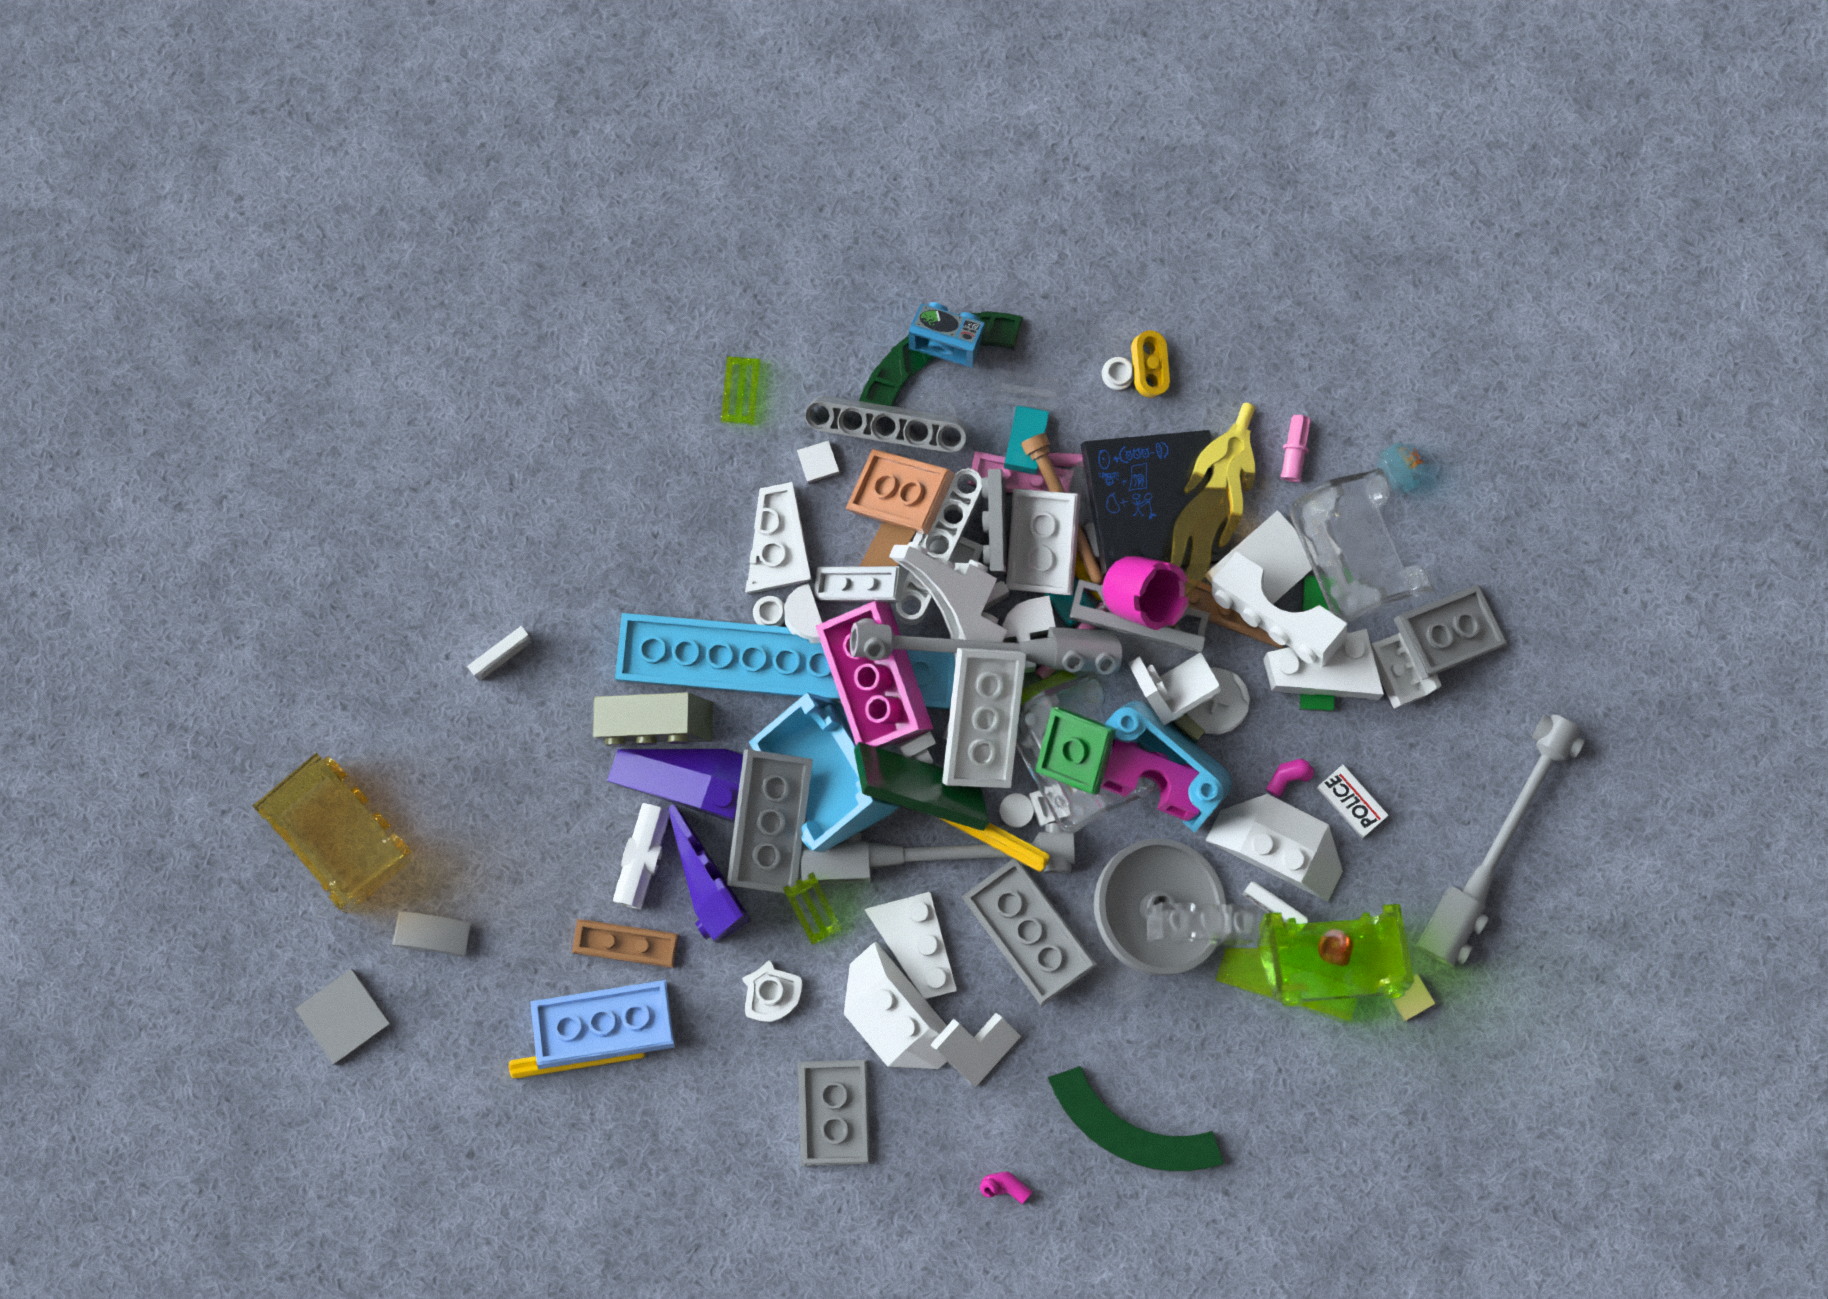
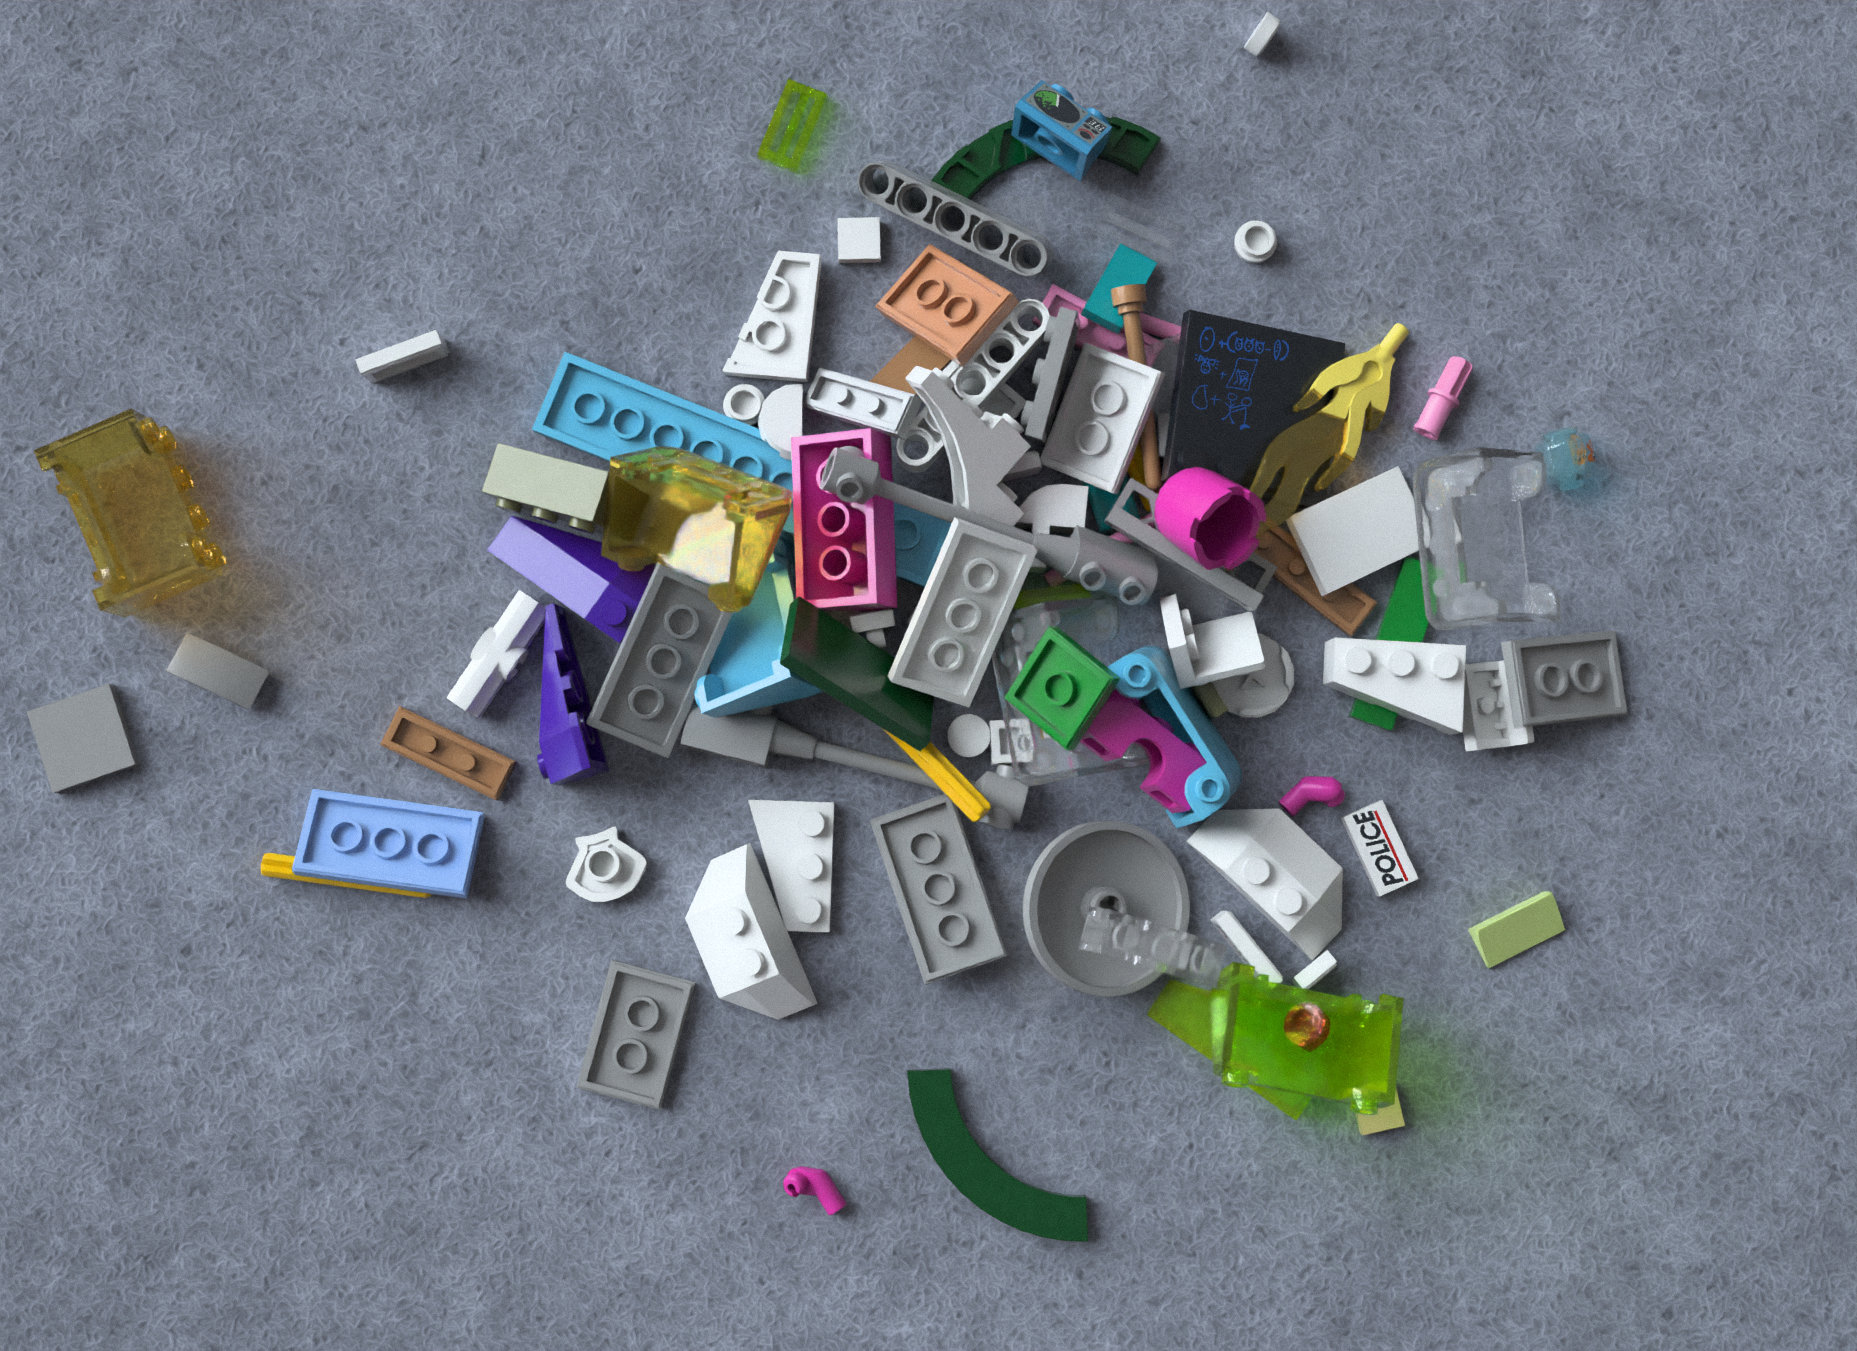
camera: 10 degrees right, 5 degrees up
(762, 709) = (693, 519): none -> clear yellow windscreen
(802, 887) = (678, 753): clear neon green tile -> none
(979, 1054) = (828, 1019): white tile -> none
(1075, 216) = (1262, 34): none -> white tile
(1150, 365) = (1298, 244): yellow plate -> none
(1310, 633) = (1397, 631): white arch -> none
(1332, 906) = (1315, 971): none -> white tile
(1462, 910) = (1471, 1022): light grey bar -> none
(1474, 831) = (1517, 928): none -> yellowish green slope

